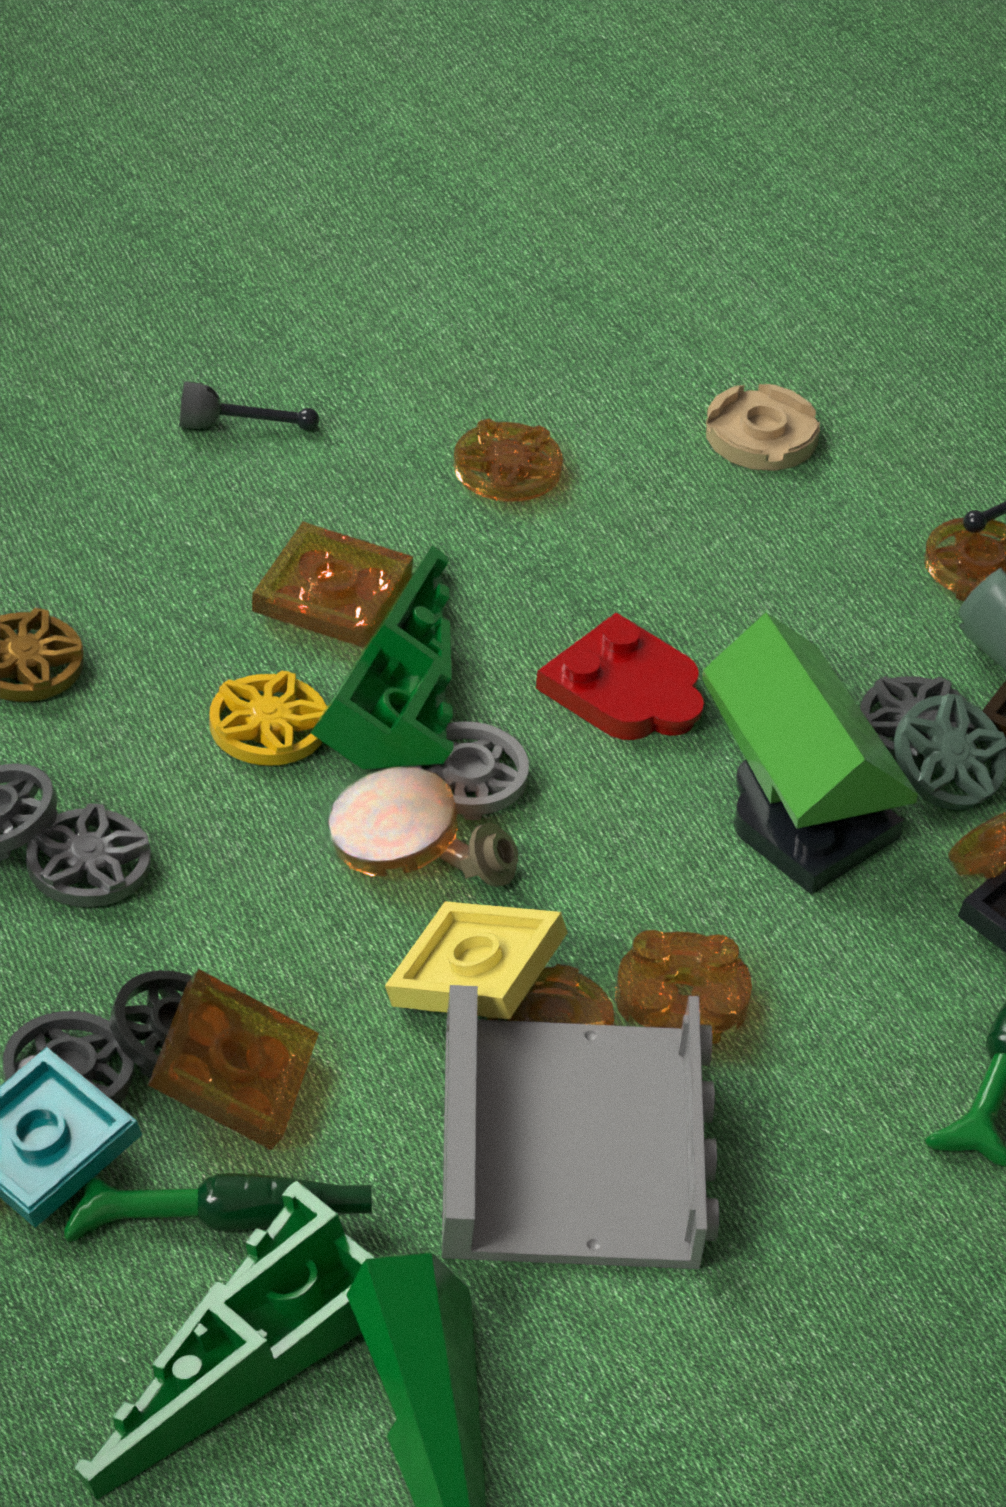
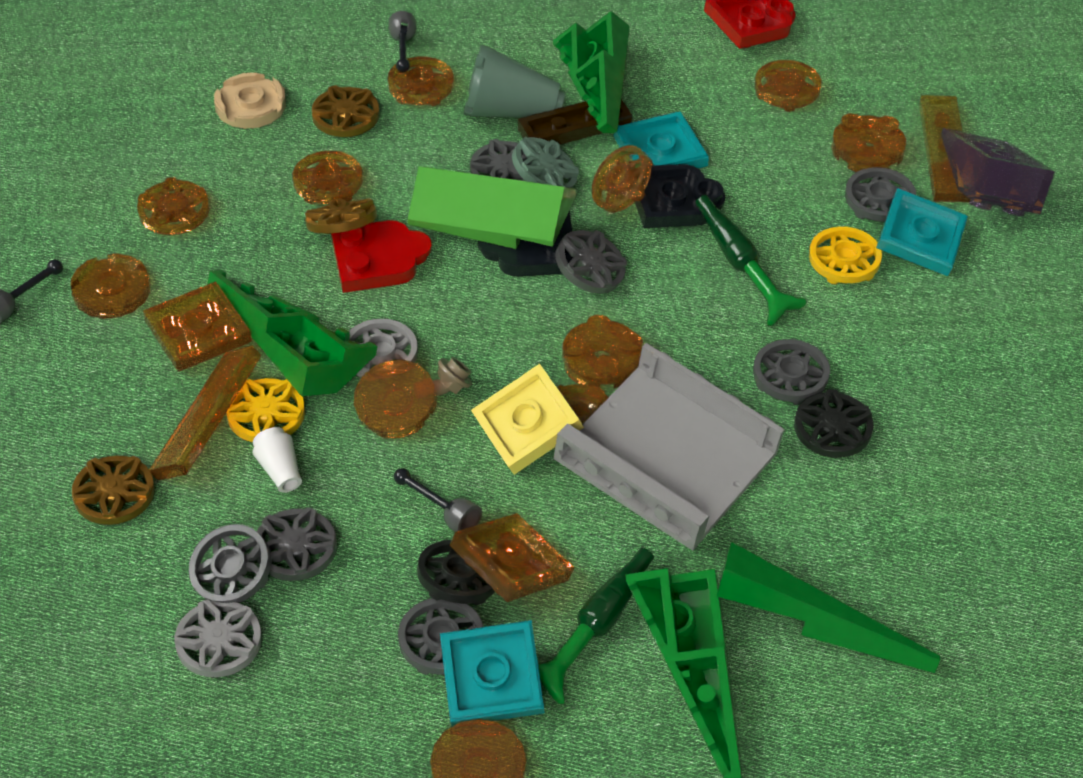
camera: 50 degrees left, 5 degrees up
(198, 764) = (277, 456): none -> white cone
(206, 665) = (205, 413): none -> clear orange tile
(274, 971) = (458, 513): none -> hinge
(327, 481) = (110, 286): none -> clear orange tile
(642, 608) = (341, 216): none -> pearl gold wheel
(708, 566) = (327, 177): none -> clear orange wheel
(809, 1302) = (834, 424): none -> pearl dark grey wheel
(828, 888) = (590, 261): none -> flat silver wheel
(842, 519) = (345, 111): none -> pearl gold wheel
(861, 1207) = (791, 370): none -> dark grey wheel

